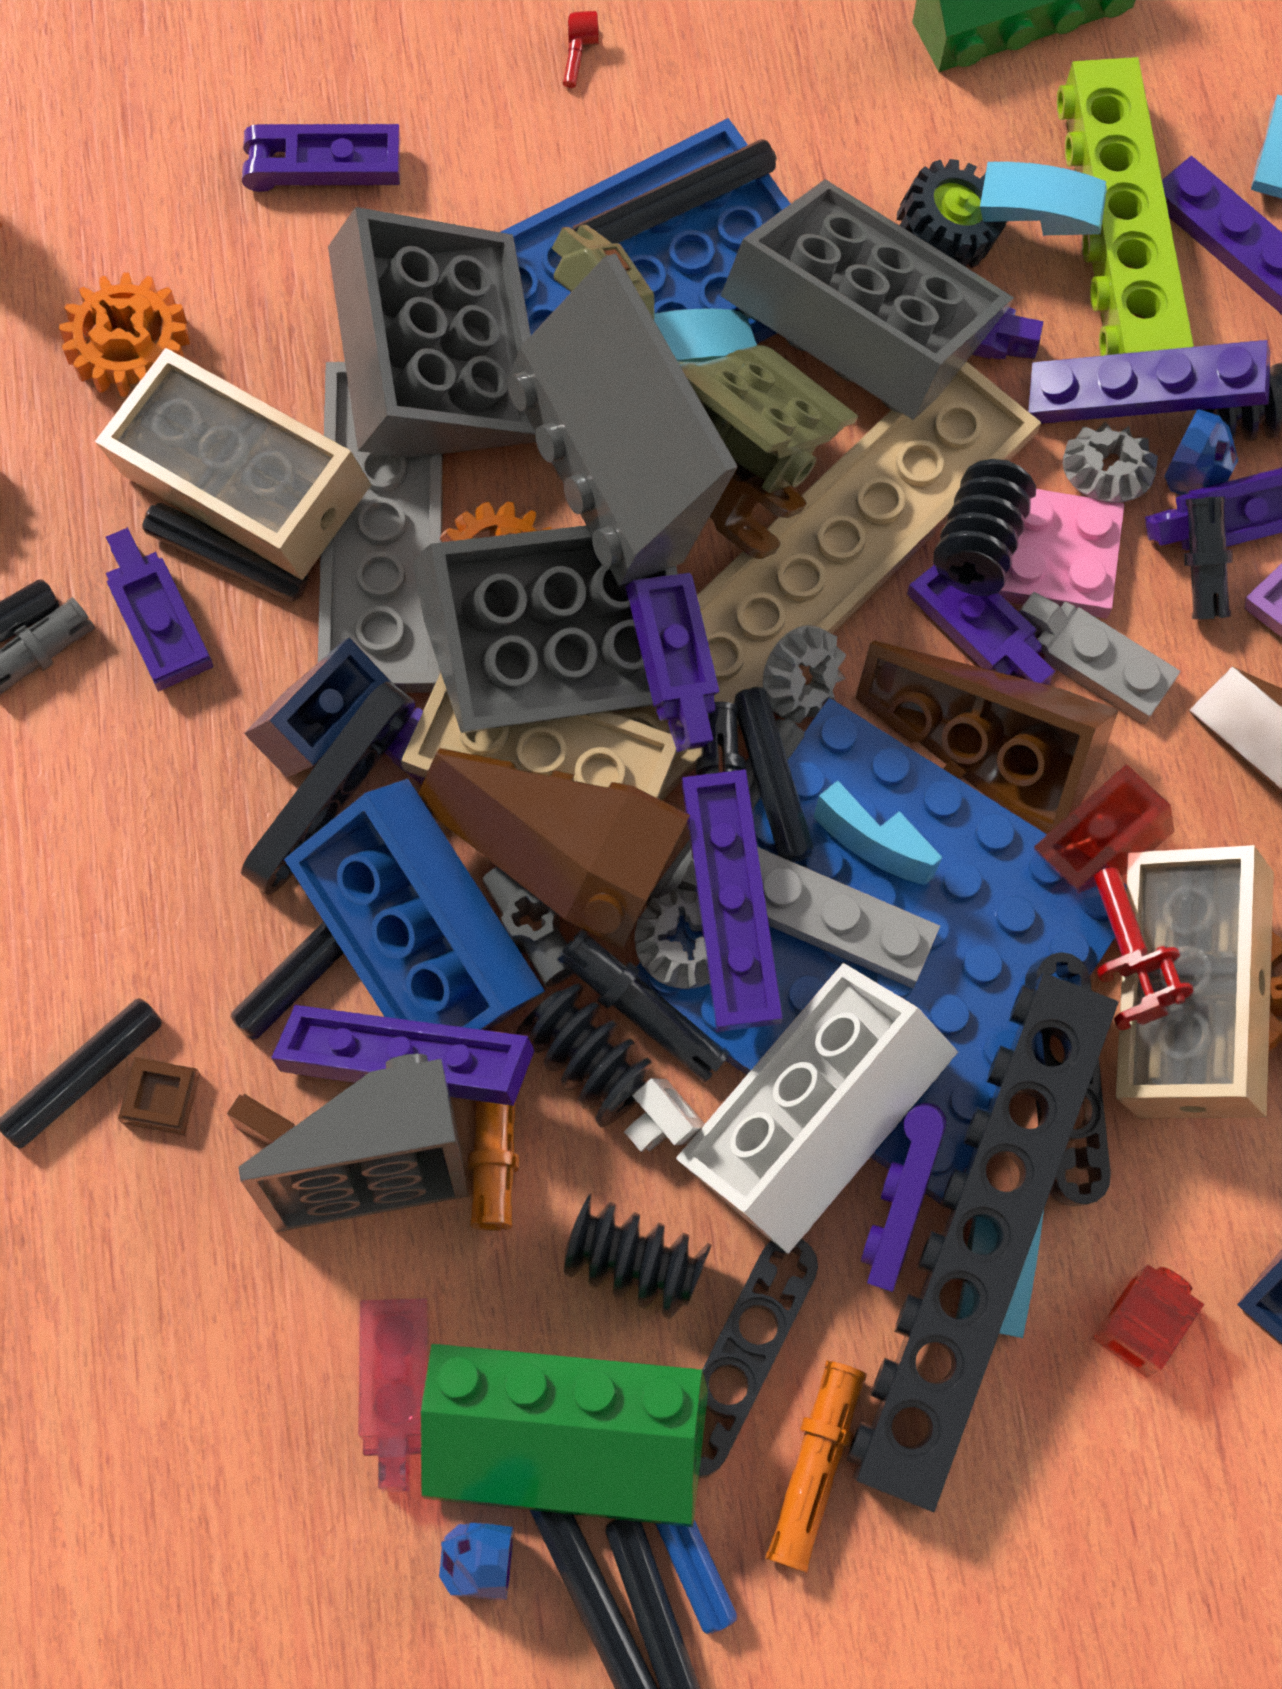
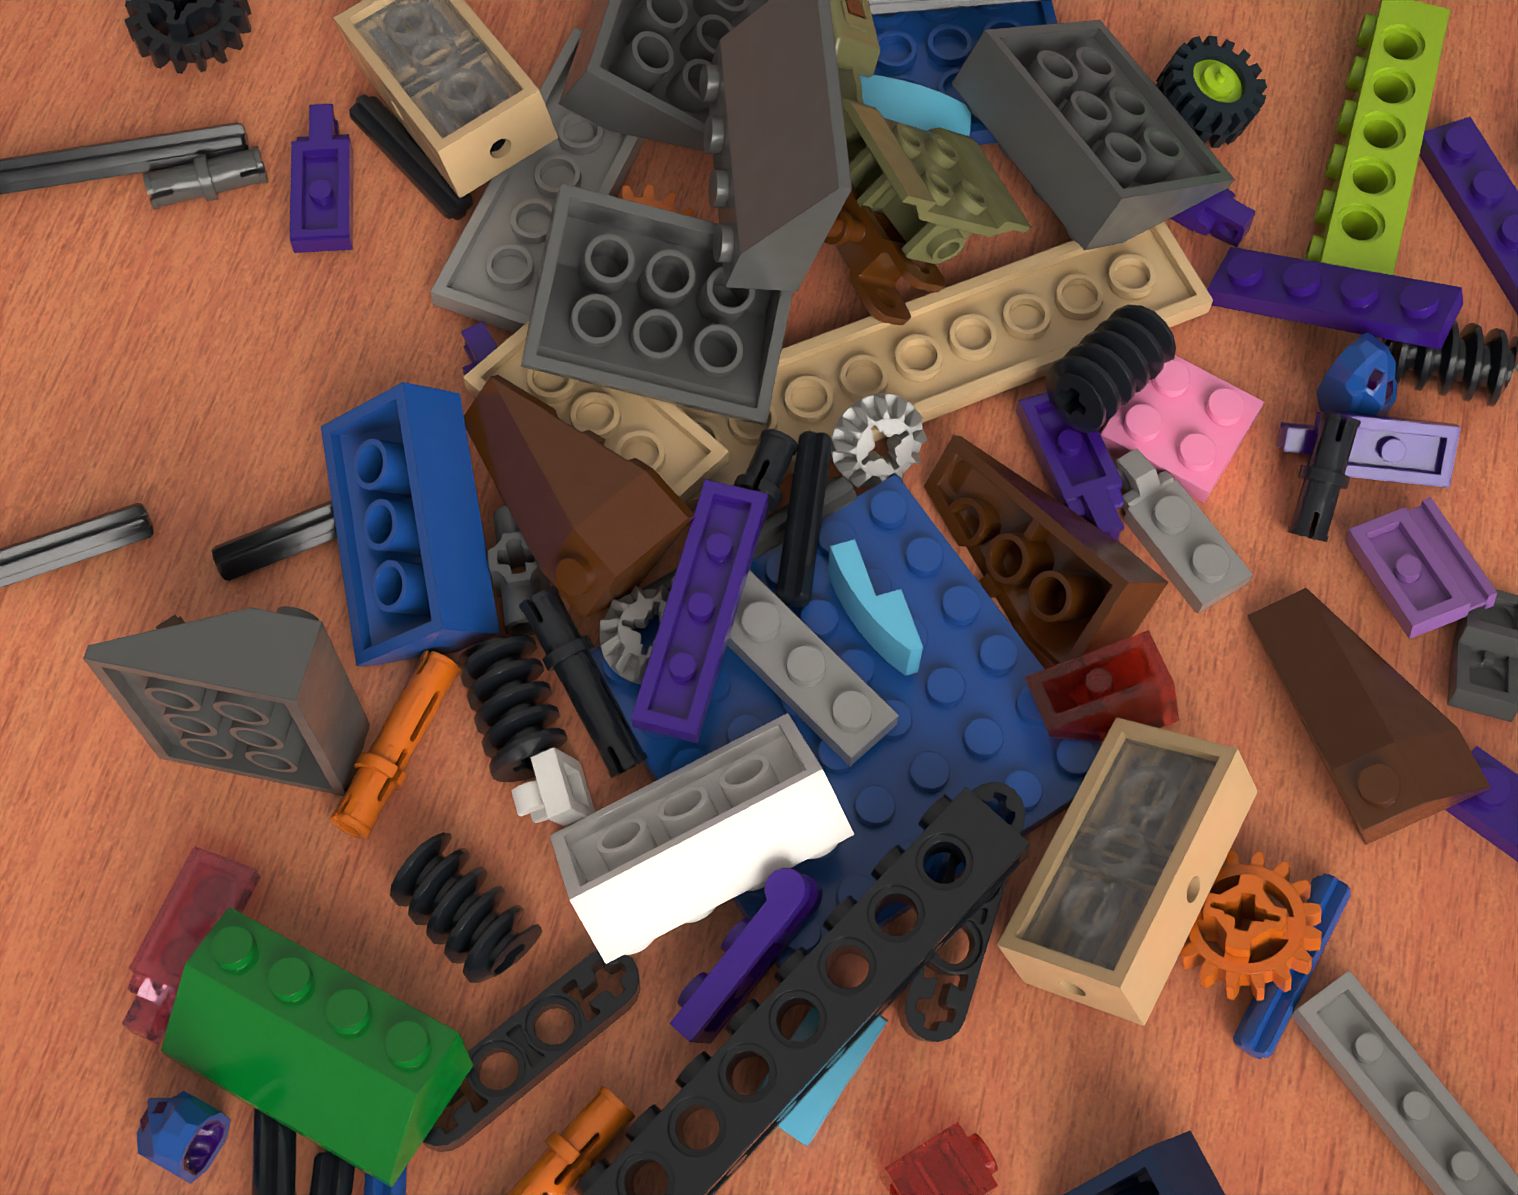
camera: 25 degrees right, 5 degrees down
(159, 1096) = (117, 596): reddish brown tile -> none
(315, 709) = (417, 309): dark blue slope -> none
(329, 784) = (420, 360): black beam -> none
(350, 1045) = (373, 653): dark purple plate -> none
(675, 656) = (752, 370): dark purple hinge -> none
(1055, 196) = (1312, 101): medium azure slope -> none
(1122, 481) = (1269, 379): light grey gear -> none
(1135, 957) = (1075, 817): red piece -> none

